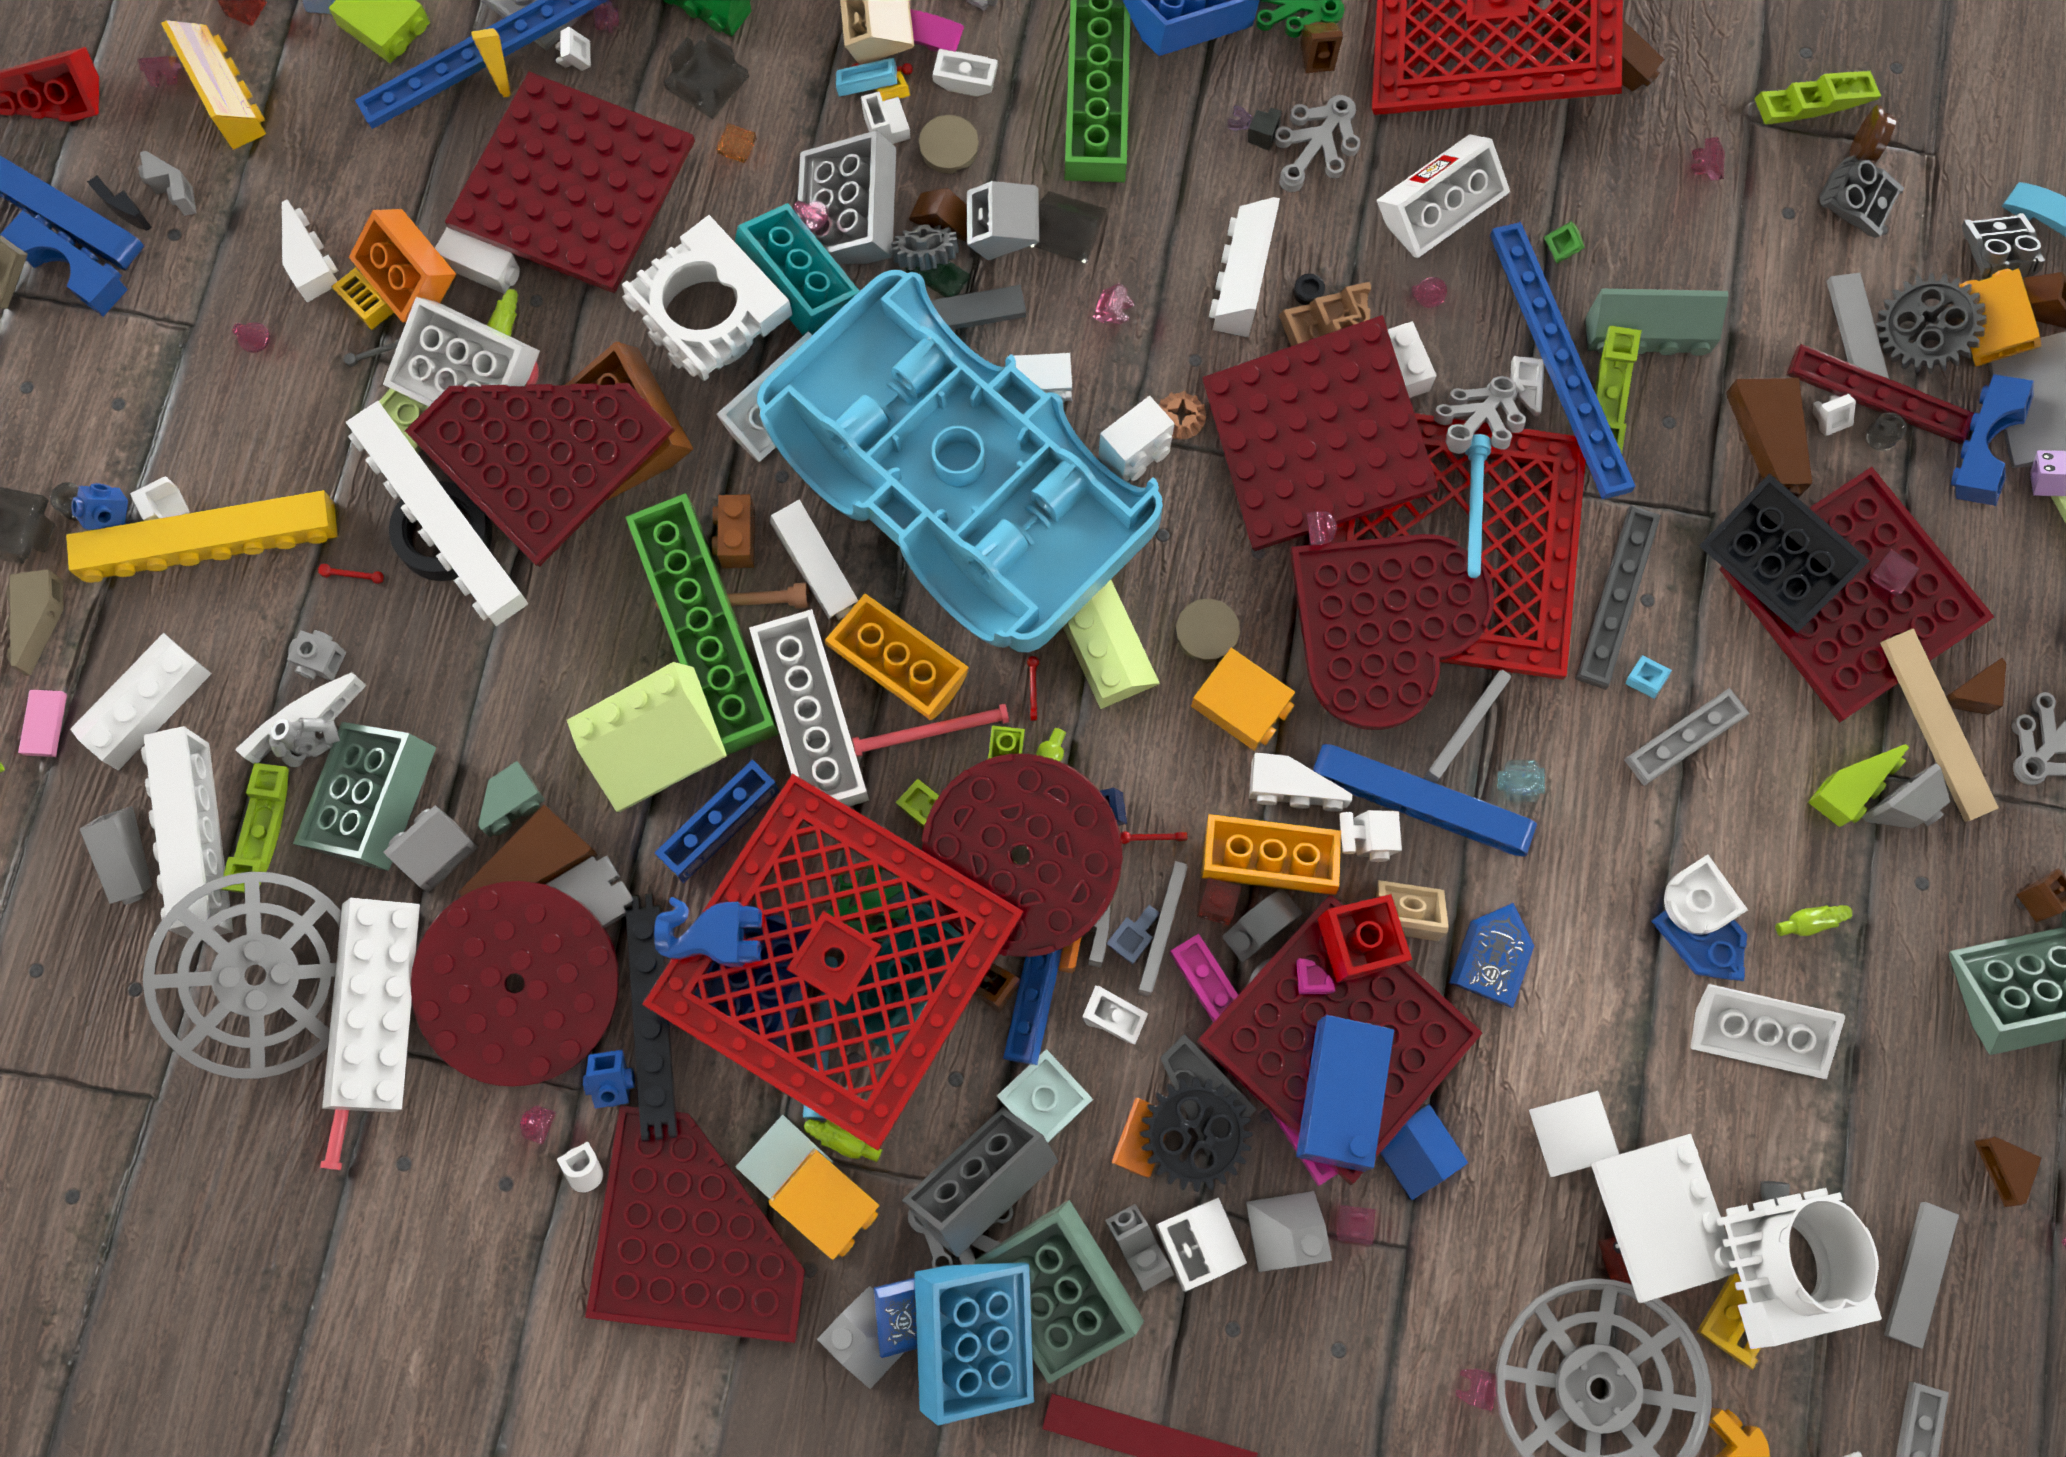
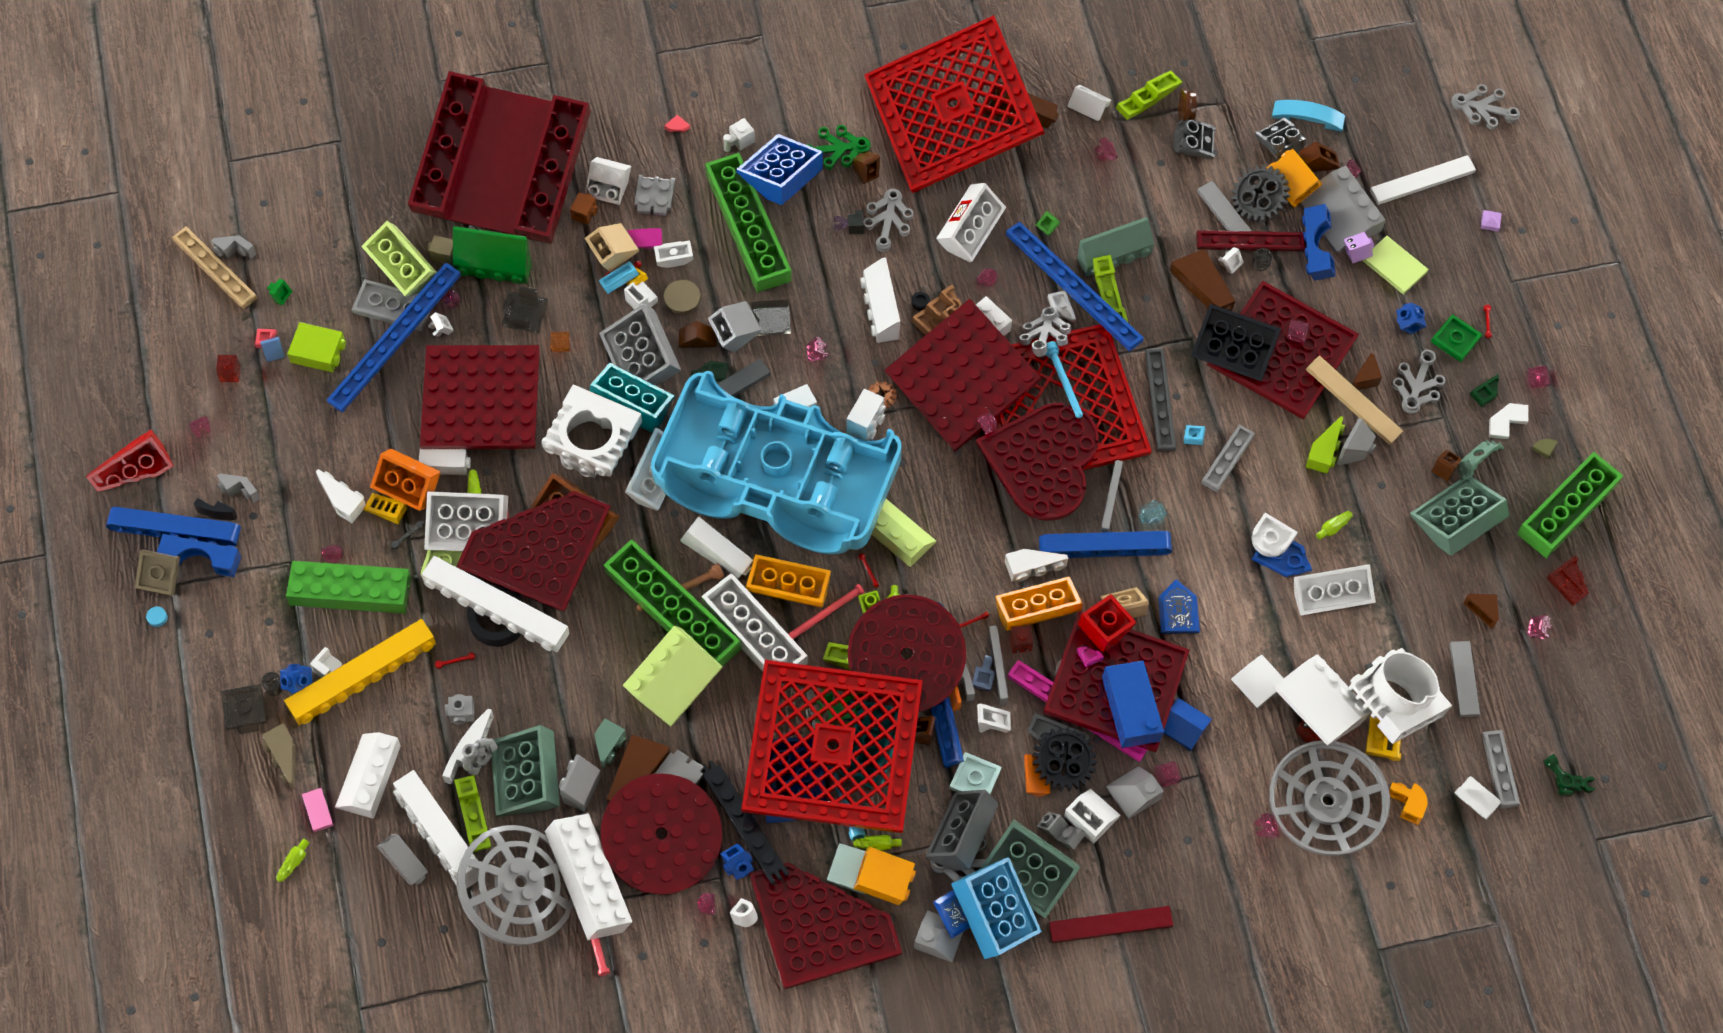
camera: 25 degrees left, 10 degrees down
(216, 82) = (240, 421): yellow slope -> none
(248, 398) = (349, 587): none -> bright green brick
(491, 51) = (399, 342): yellow slope -> none
(714, 933) = (764, 756): blue hips -> none
(717, 821) = (731, 706): blue brick -> none
(735, 531) = (665, 550): dark orange brick -> none
(812, 214) = (626, 363): clear pink plate -> none
(925, 247) = (698, 357): dark grey gear -> none
(1207, 630) = (949, 502): dark tan tile -> none
(1244, 700) = (986, 530): light orange brick -> none
(1262, 924) = (1049, 641): dark grey brick -> none
(1375, 834) = (1086, 572): white brick -> none
(1715, 74) = (1088, 102): none -> white panel

